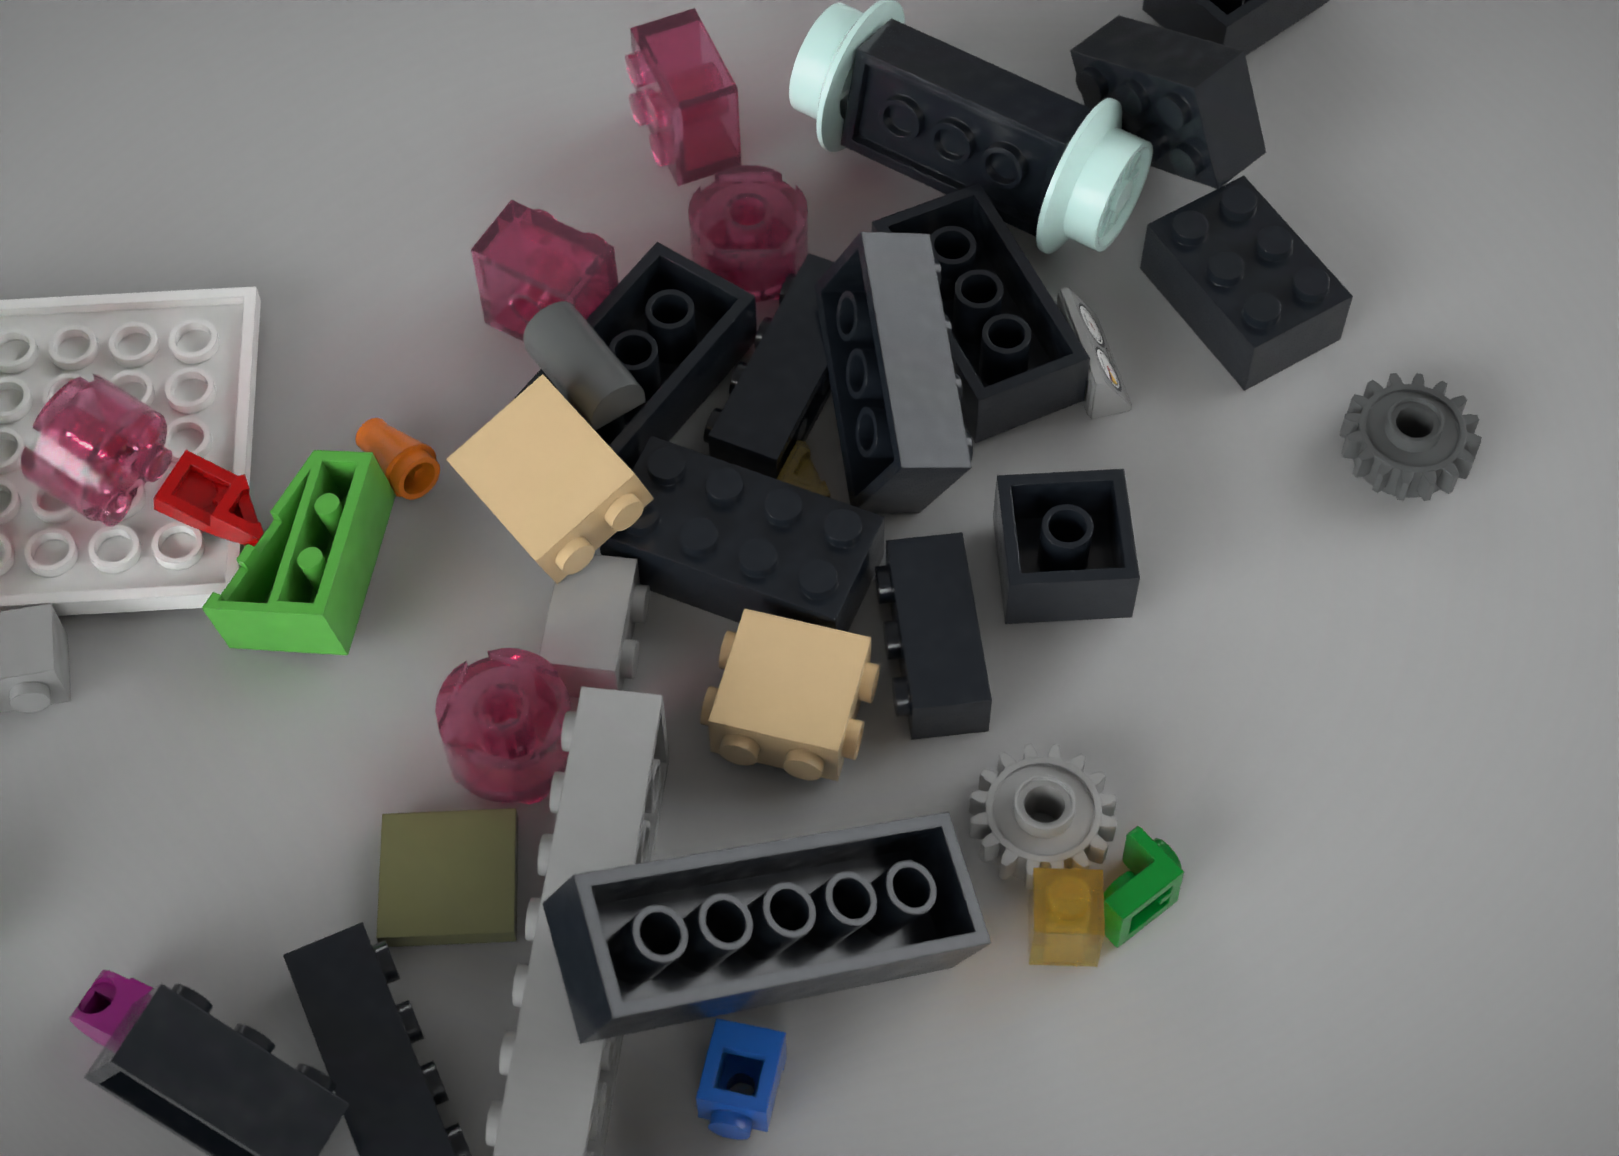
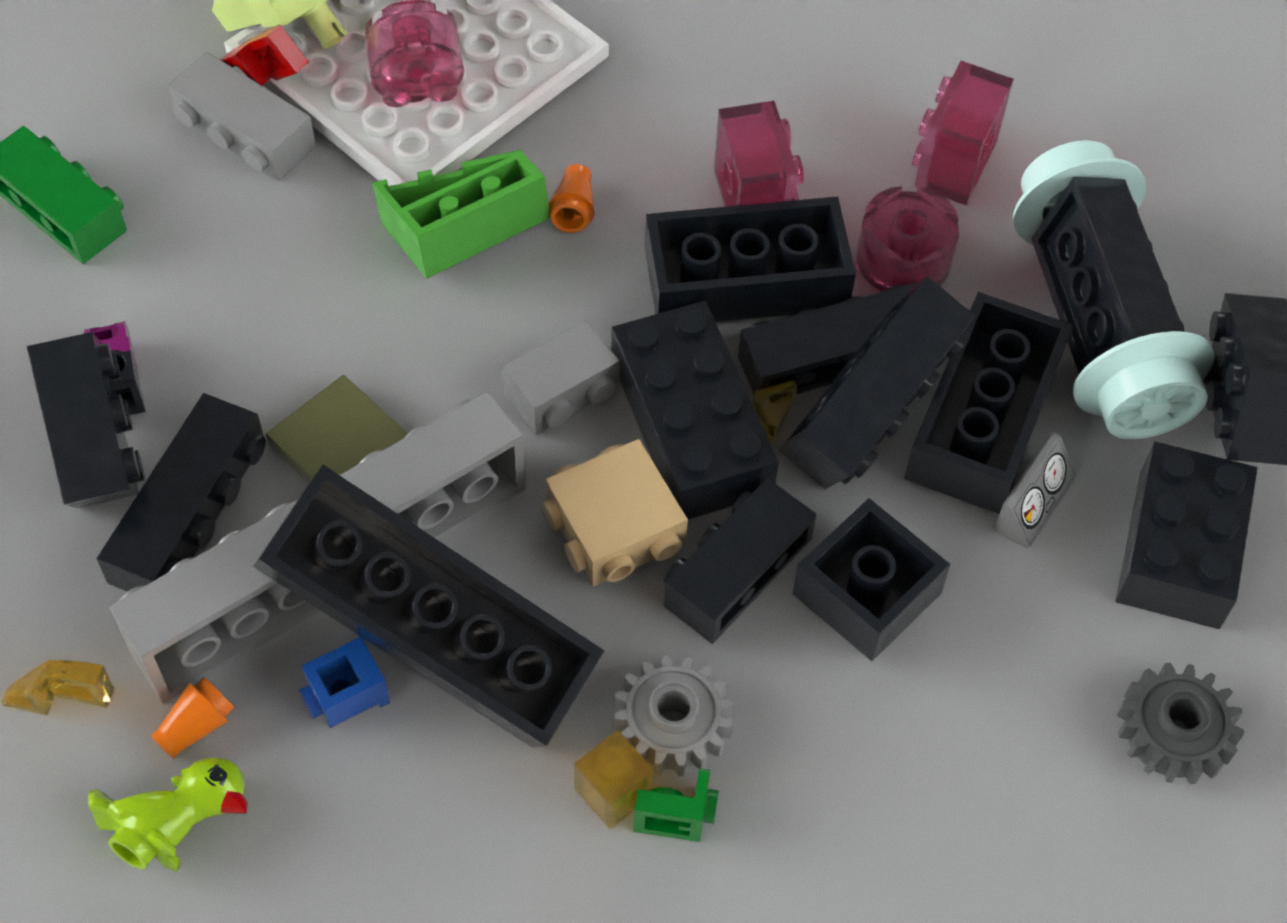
camera: 45 degrees right, 0 degrees up
(209, 500) = (448, 132): red slope -> none
(504, 725) = (444, 370): clear pink brick -> none
(551, 479) = (611, 270): tan brick -> none
(581, 364) = (706, 224): dark grey brick -> none

